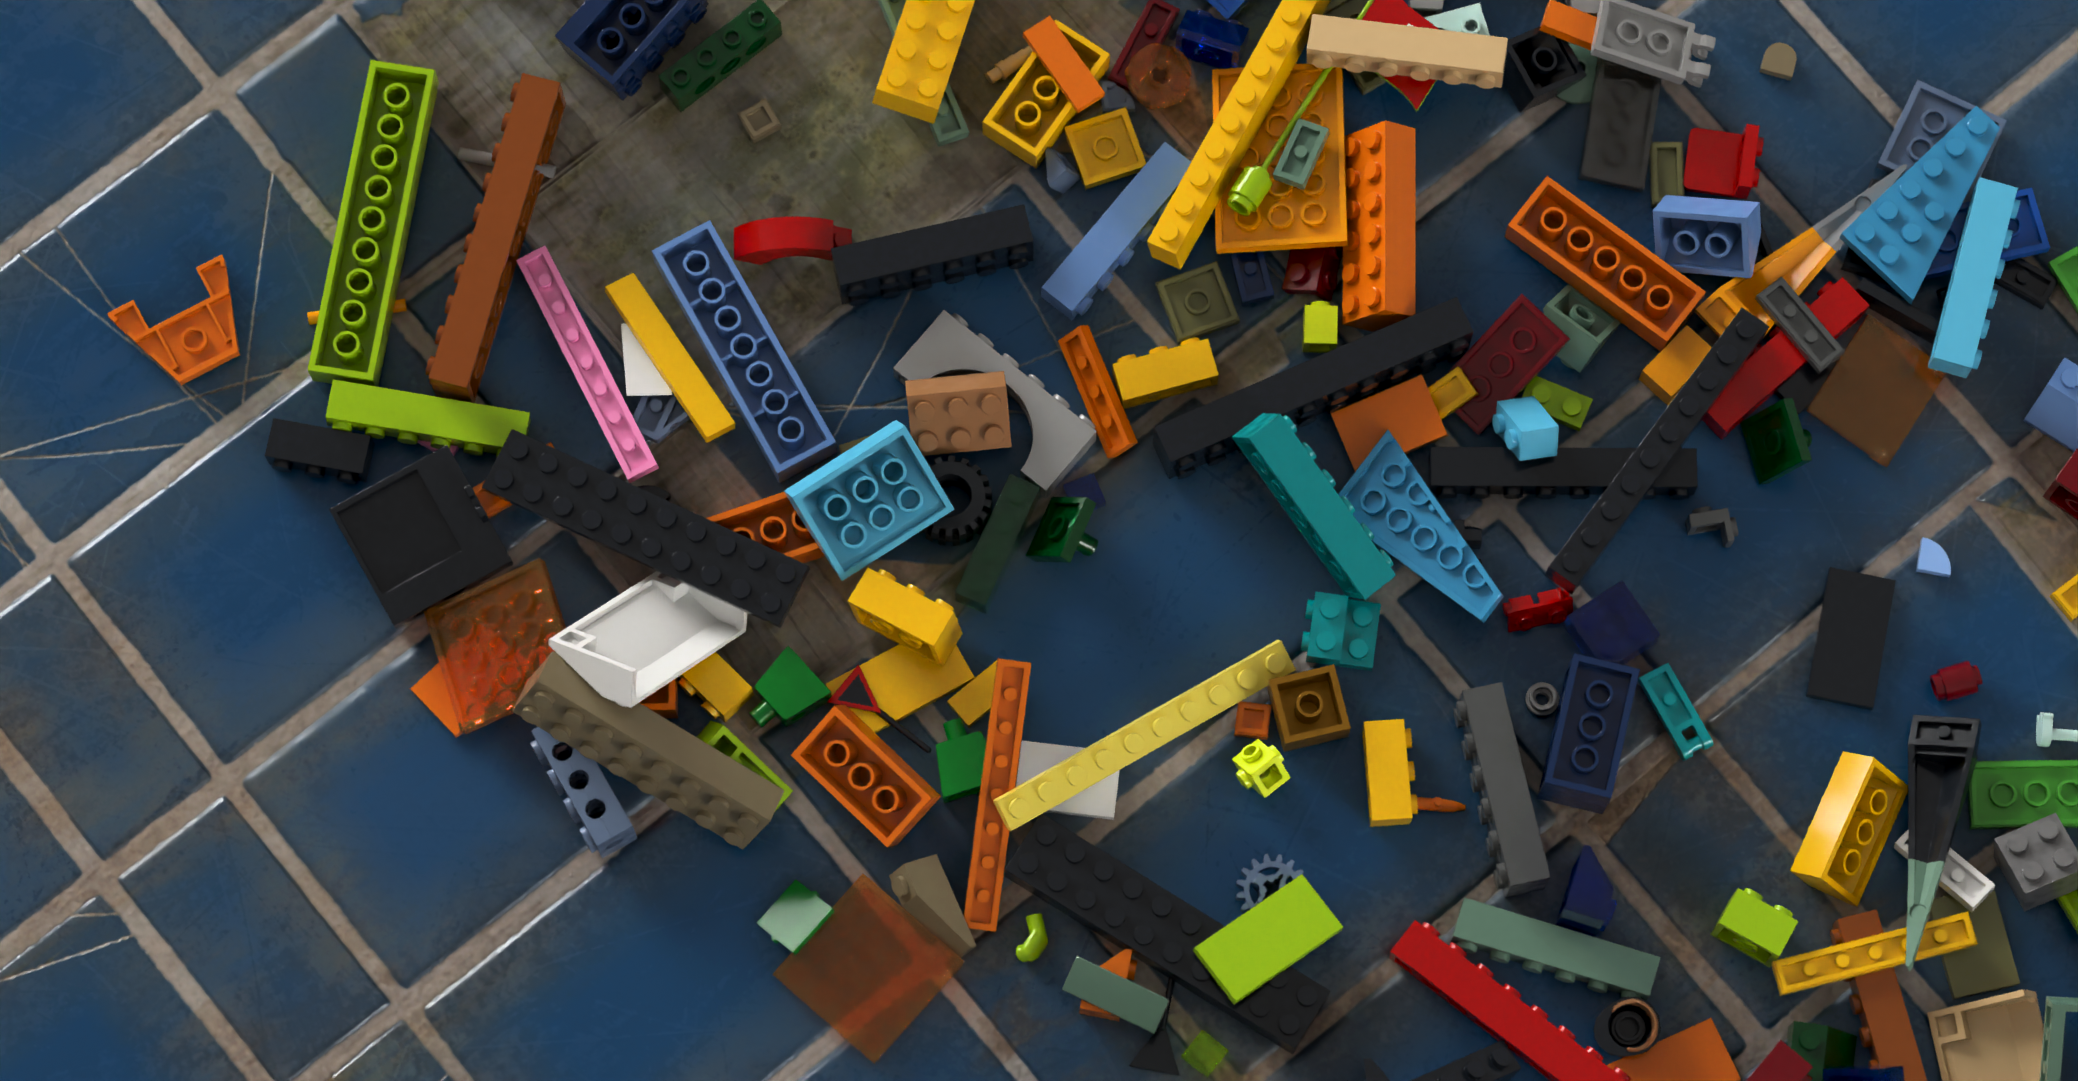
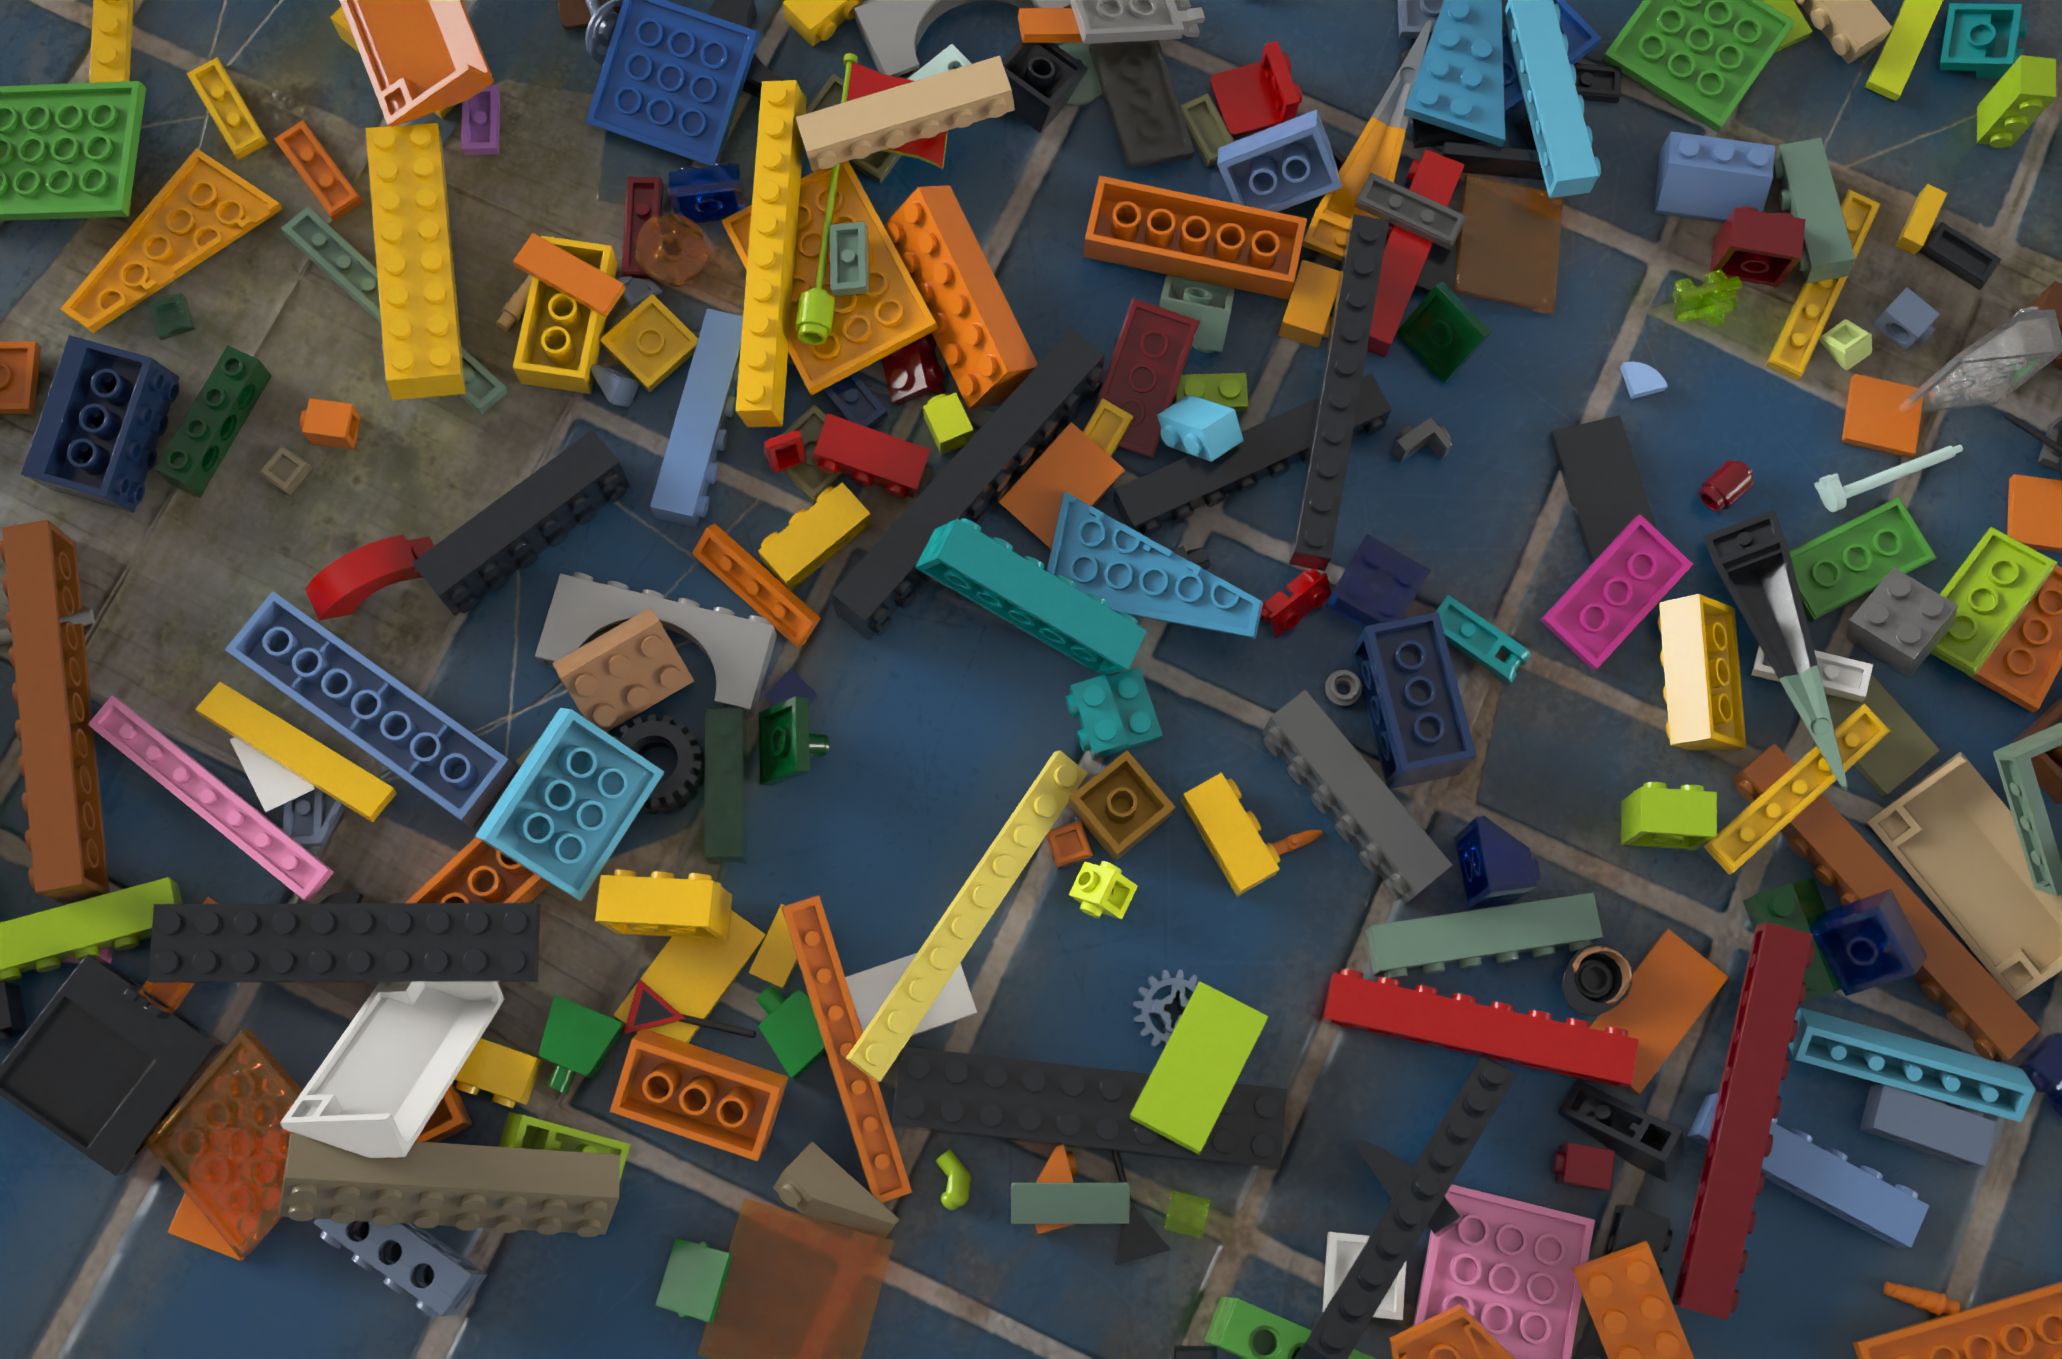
camera: 30 degrees left, 0 degrees up
(813, 99) = (330, 423): none -> orange brick
(1172, 292) = (785, 451): none -> red slope
(1241, 327) = (870, 457): none -> red brick
(1811, 726) = (1616, 592): none -> dark pink plate
(2024, 517) = (1707, 301): none -> clear neon green hips

